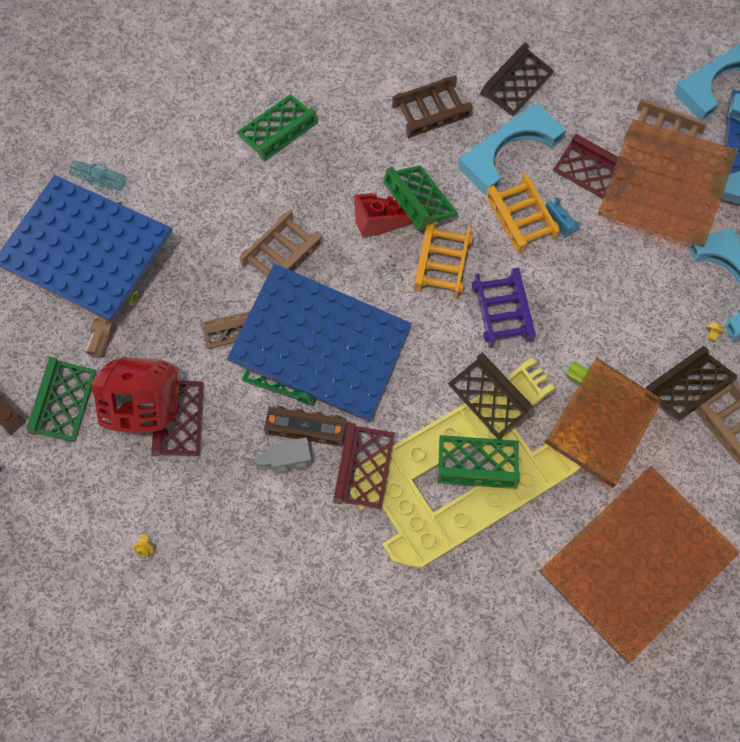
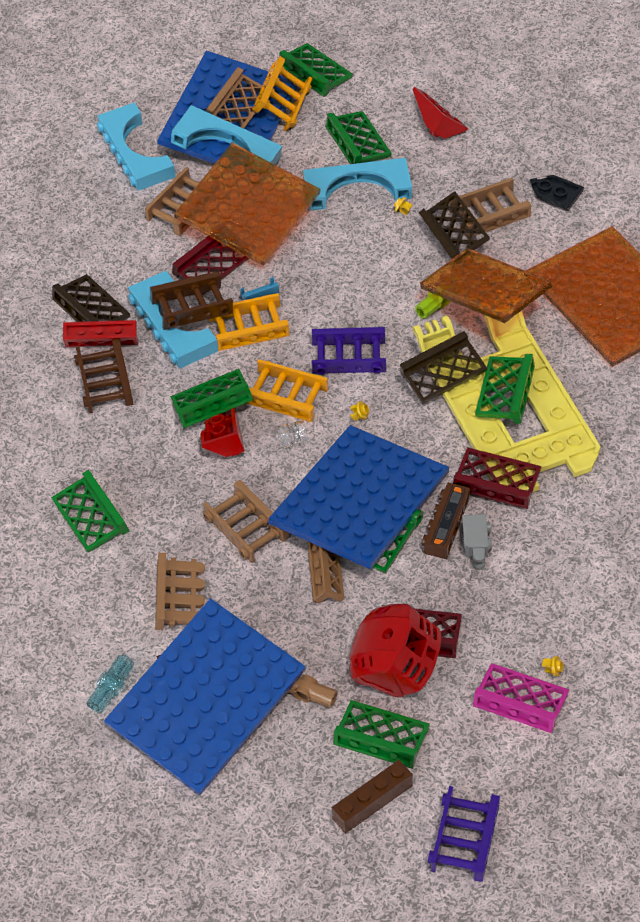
camera: 75 degrees left, 15 degrees down
(91, 514) = (515, 708): none -> dark pink fence
(202, 194) = (177, 583): none -> medium nougat fence
(430, 330) = (361, 411): none -> yellow plate
(477, 91) = (99, 333): none -> red fence
(537, 141) = (187, 287): none -> reddish brown fence

